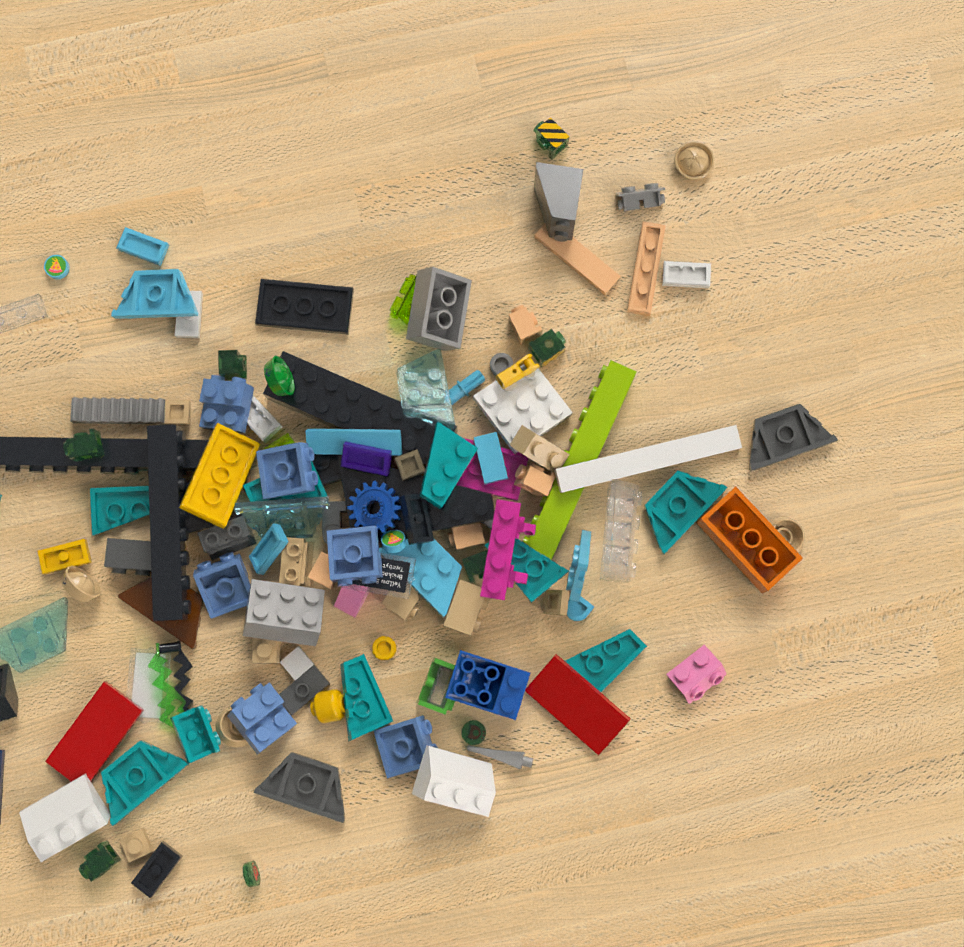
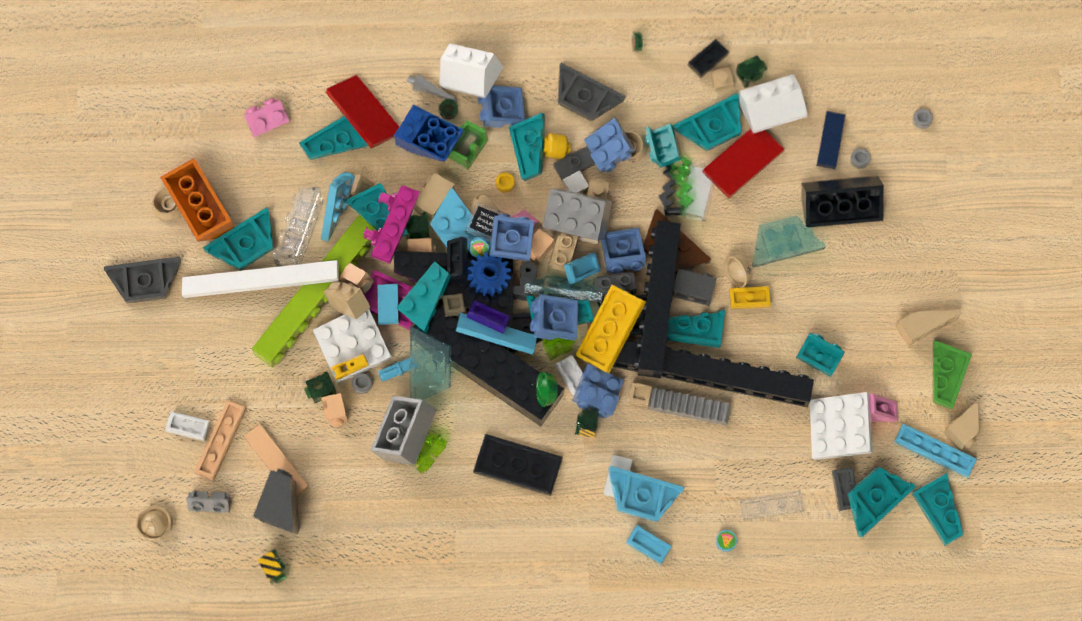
camera: 175 degrees left, 10 degrees down
(84, 446) = (718, 370): clear green brick -> none

